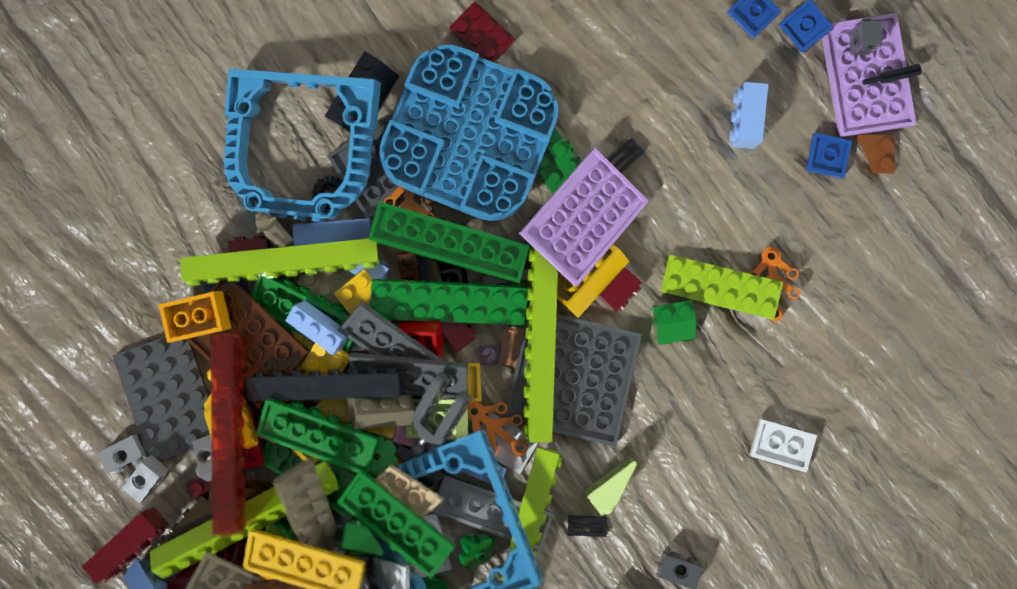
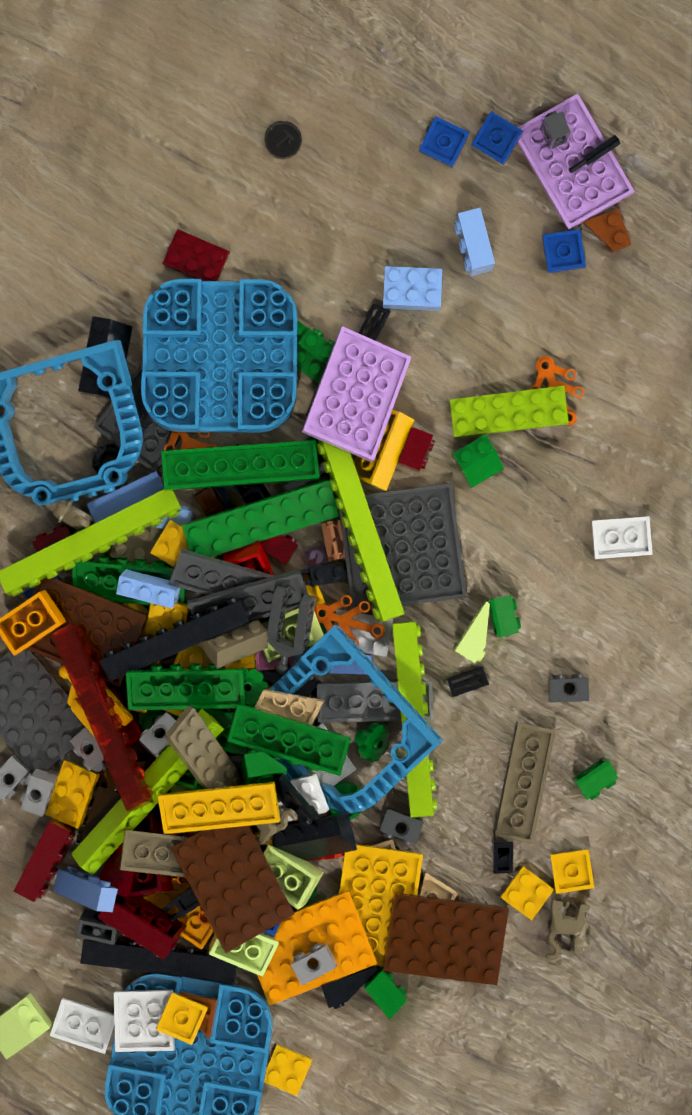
camera: 20 degrees left, 0 degrees up
(176, 492) = (72, 794): none -> yellow plate
(265, 468) = (148, 738): none -> light grey brick
(491, 375) = (326, 574): none -> black hinge
(643, 479) = (503, 616): none -> green slope
(673, 137) = (412, 288): none -> light blue brick

